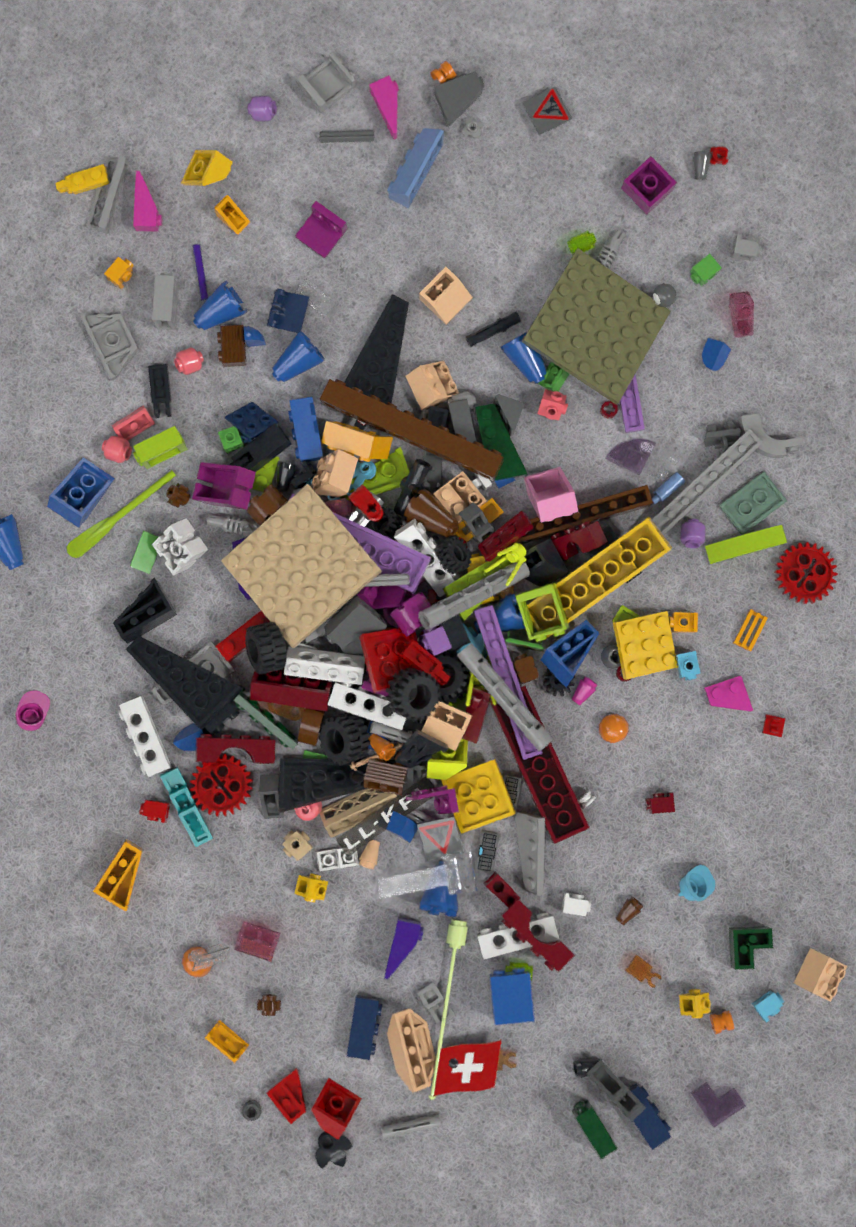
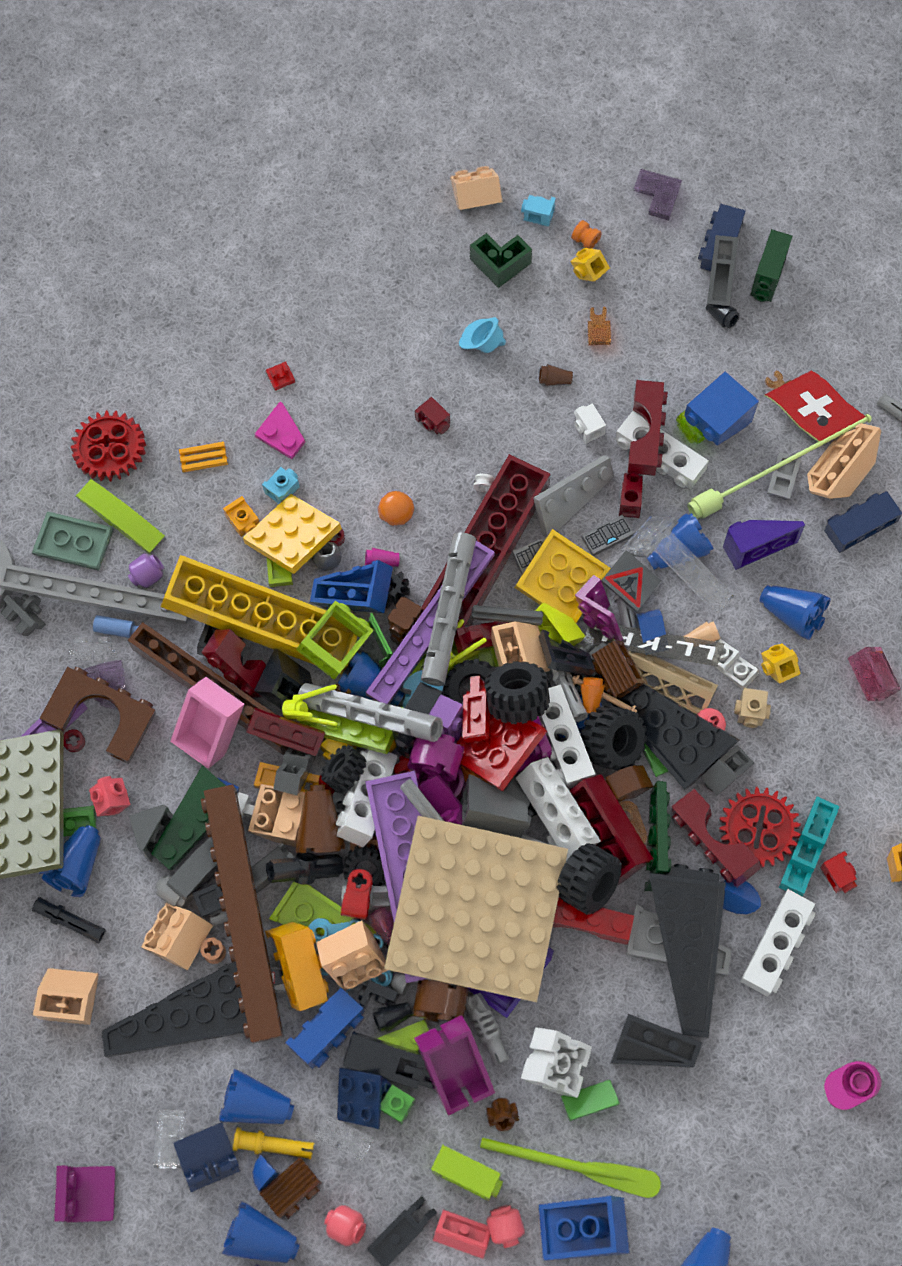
camera: 120 degrees left, 15 degrees down
(272, 347) = (259, 1142): none -> yellow pin
(339, 929) = (796, 608): none -> blue cone
(406, 406) = (206, 947): none -> nougat bush
(473, 739) = (507, 615): none -> dark grey axle
(638, 433) = (77, 688): none -> reddish brown arch

